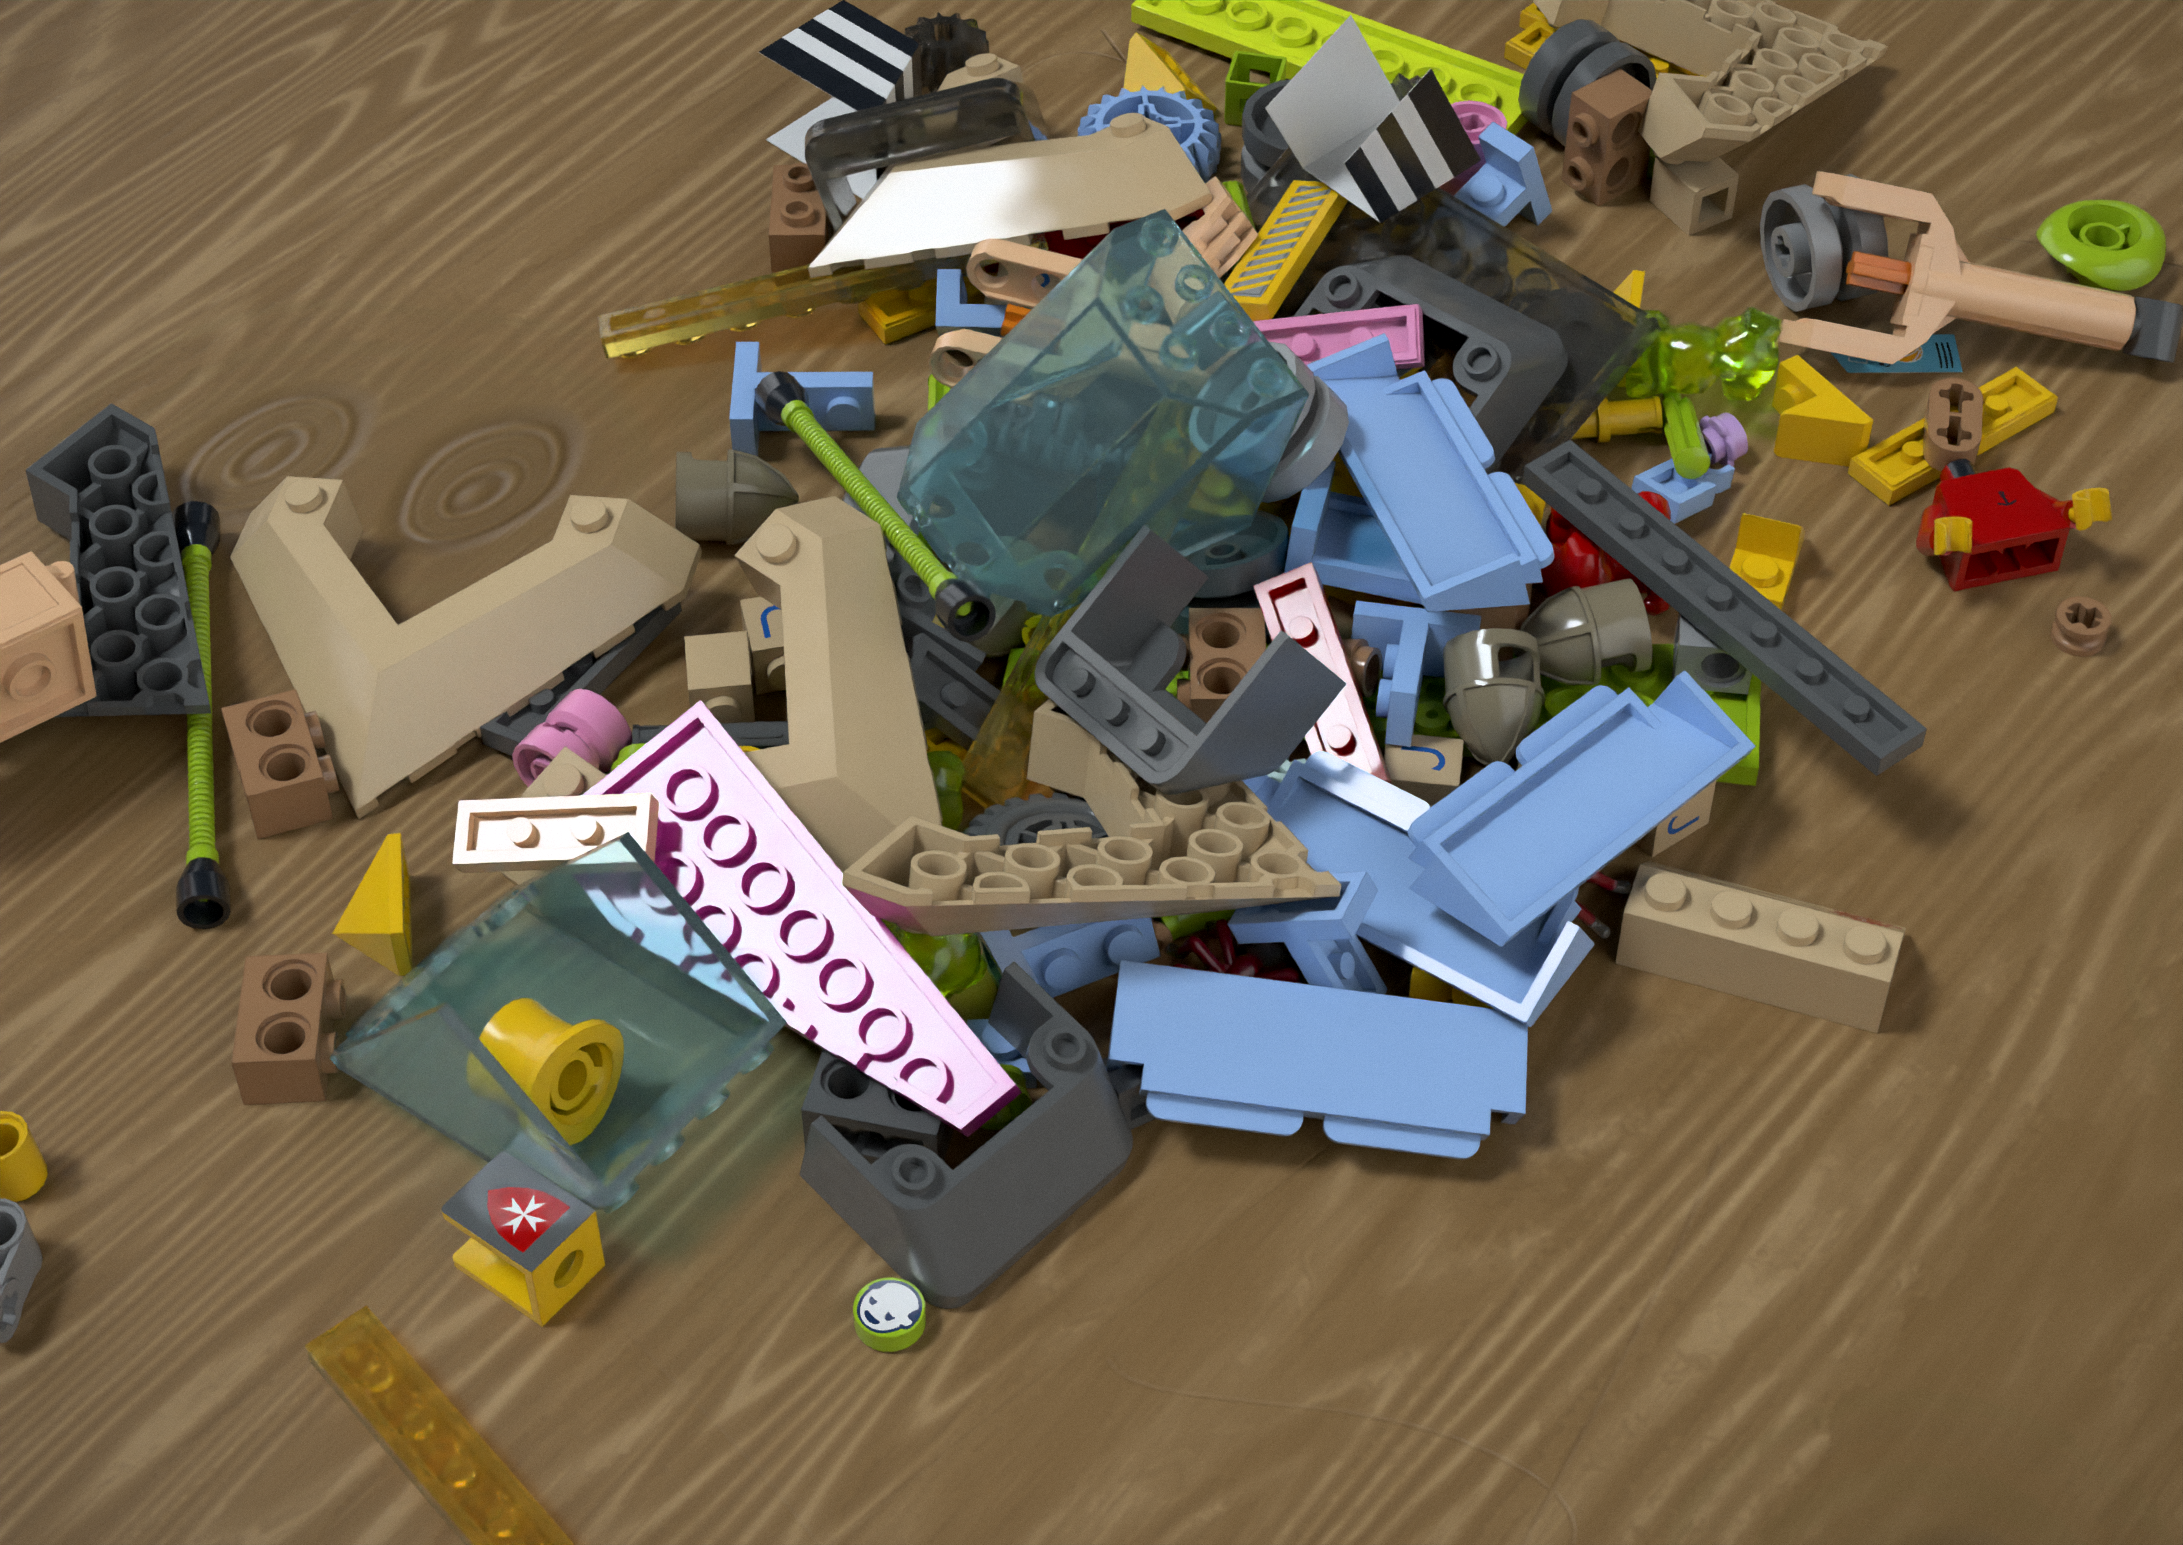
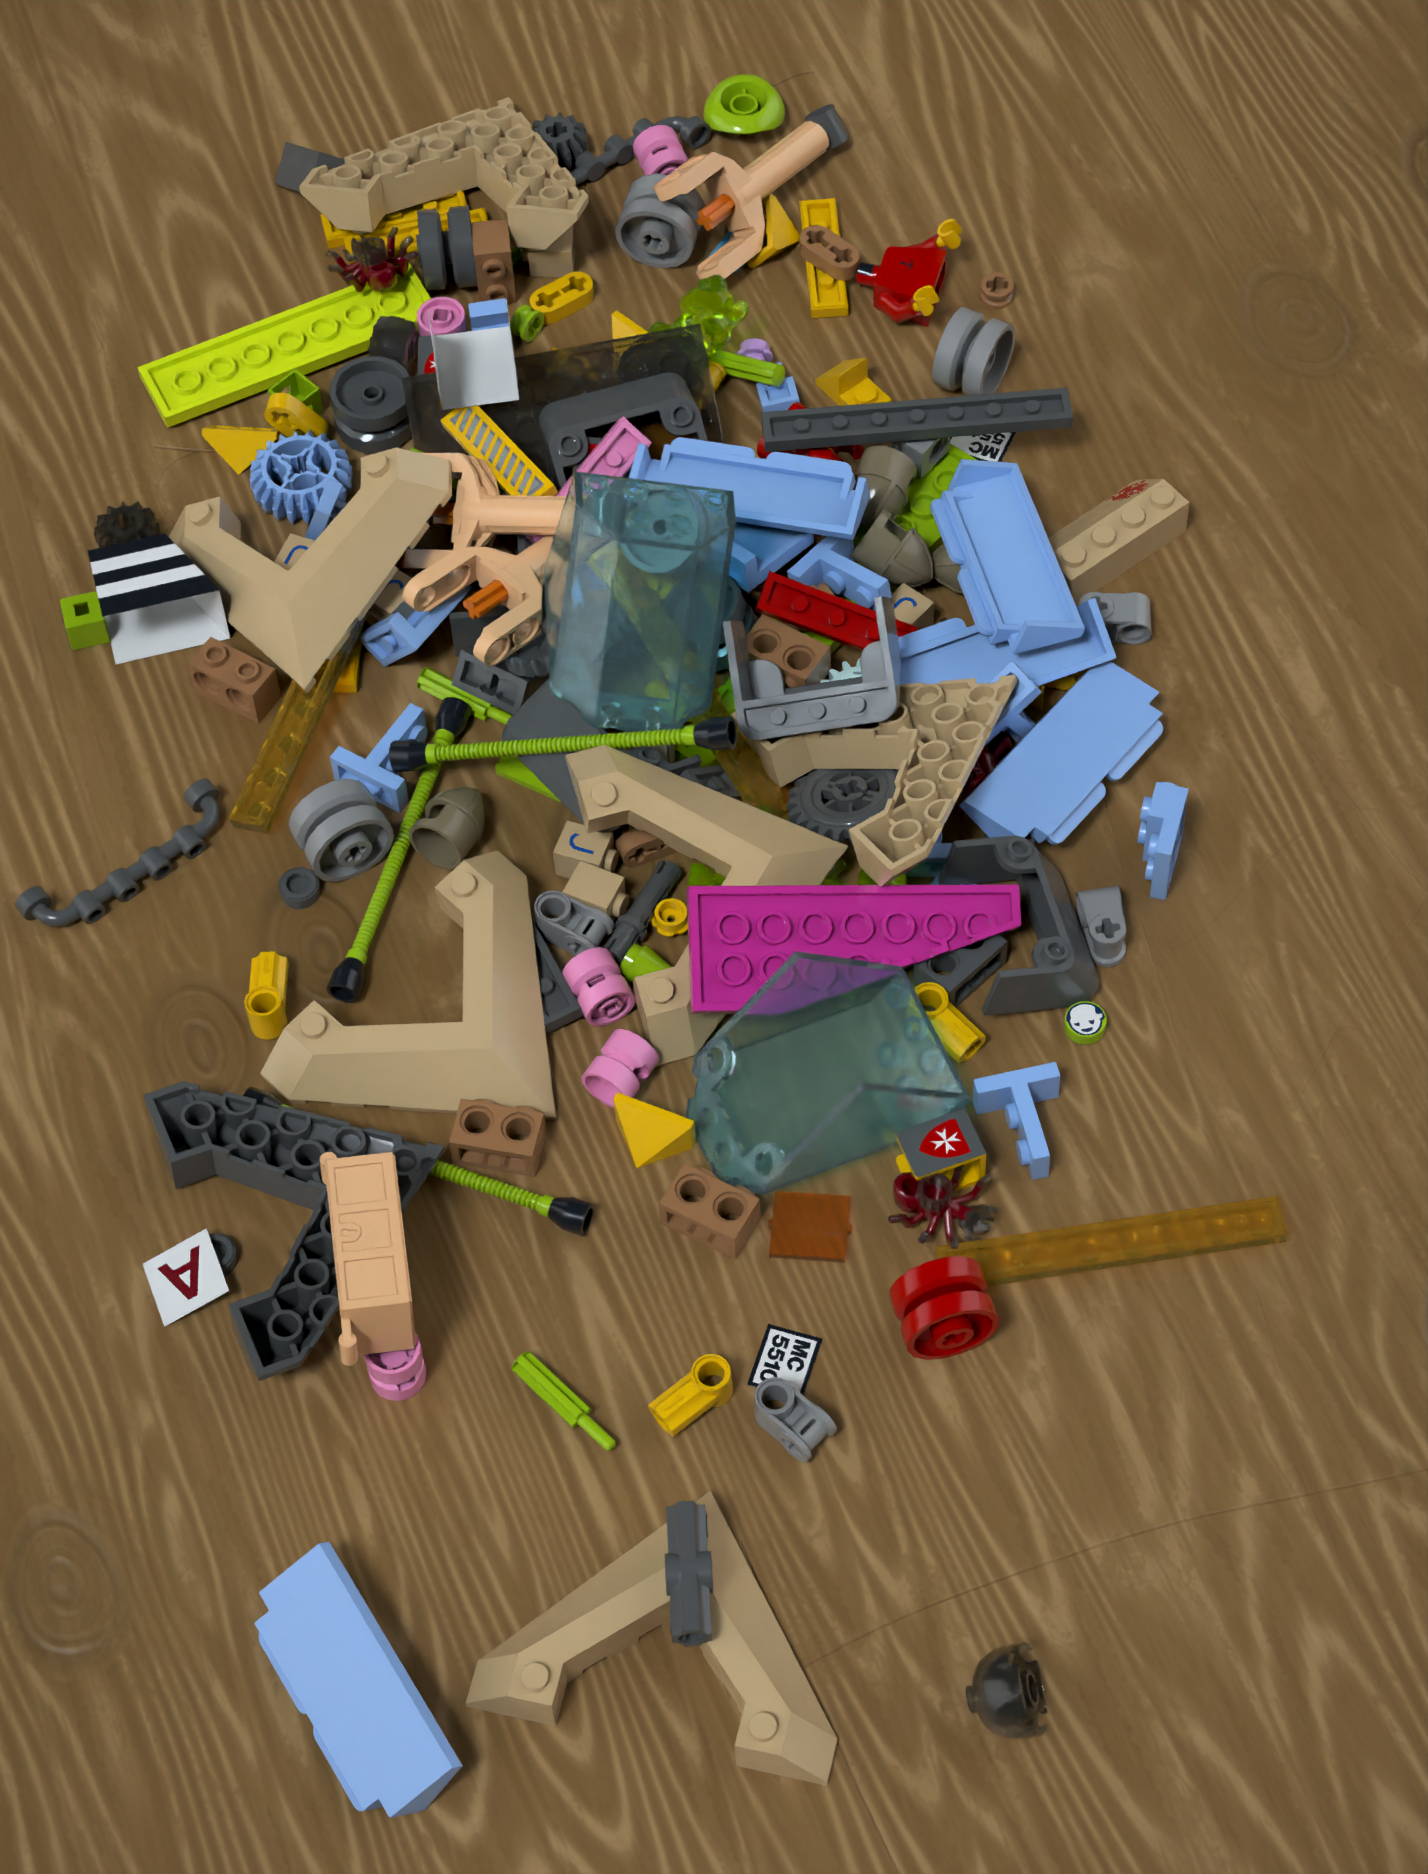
camera: 55 degrees left, 10 degrees up
(101, 1235) = (785, 1356): none -> sticker
(241, 1351) = (944, 1307): none -> red wheel
(340, 1158) = (809, 1226): none -> clear orange piece
(366, 458) = (267, 995): none -> yellow piece
(369, 223) = (122, 883): none -> dark grey bar
(431, 821) = (624, 1064): none -> bright pink wheel
(442, 520) = (349, 974): none -> lime hose
(443, 1270) = (933, 1200): none -> animal
(548, 830) = (714, 1003): plate -> none
(551, 425) = (299, 888): none -> dark grey tile
(557, 1064) = (831, 1085): yellow piece -> none
(630, 398) = (341, 830): none -> light grey wheel
(655, 674) = (578, 924): none -> light grey piece
(690, 1285) = (1016, 1094): none -> light blue bracket
(762, 1140) = (954, 1030): none -> yellow piece
(778, 89) = (84, 621): none -> lime piece
(915, 130) = (263, 572): clear smoke windscreen -> none
(1073, 1249) = (1103, 924): none -> light grey piece
(1216, 88) = (290, 414): none -> yellow beam
(1263, 1242) = (1162, 834): none -> light blue plate
(1505, 42) = (373, 262): none -> animal
(1559, 206) = (526, 323): none -> lime bush
(1629, 1008) = (1124, 615): none -> light grey piece
(1637, 235) = (563, 296): none -> yellow beam
(1800, 741) = (985, 447): none -> sticker
(1816, 417) = (776, 301): yellow slope -> none
(1866, 117) = (563, 136): none -> dark grey gear
(1920, 630) = (973, 353): none -> light grey wheel
(1947, 356) = (778, 232): none -> yellow slope
(1957, 193) = (659, 150): none -> bright pink wheel
(2015, 221) = (692, 131): none -> dark grey bar

